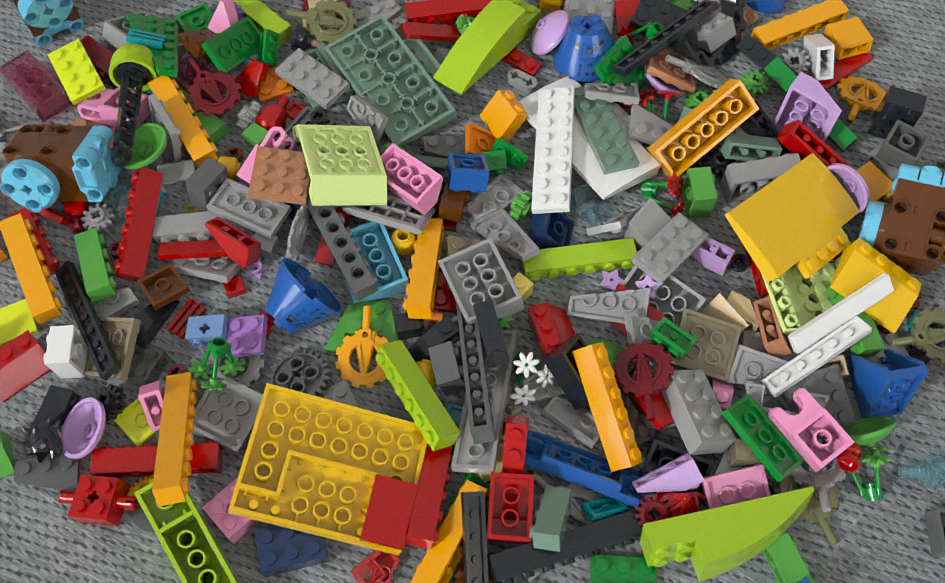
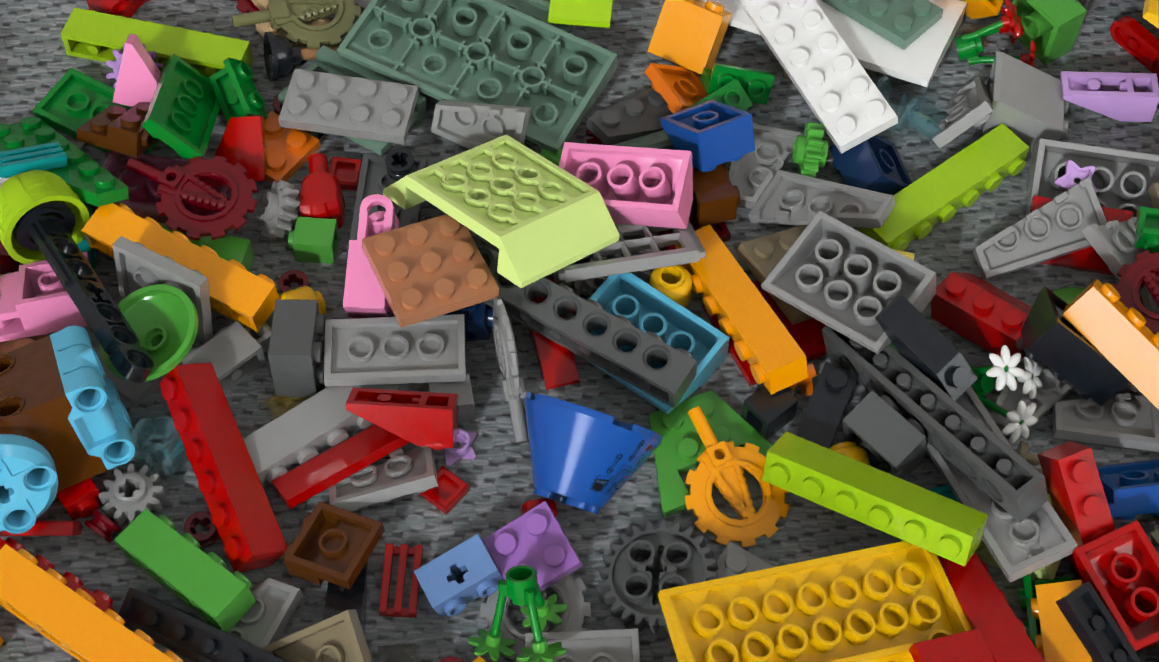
camera: 30 degrees left, 5 degrees down
(611, 284) = (1008, 207): lavender plate -> none
(670, 248) = (1072, 110): light grey plate -> none

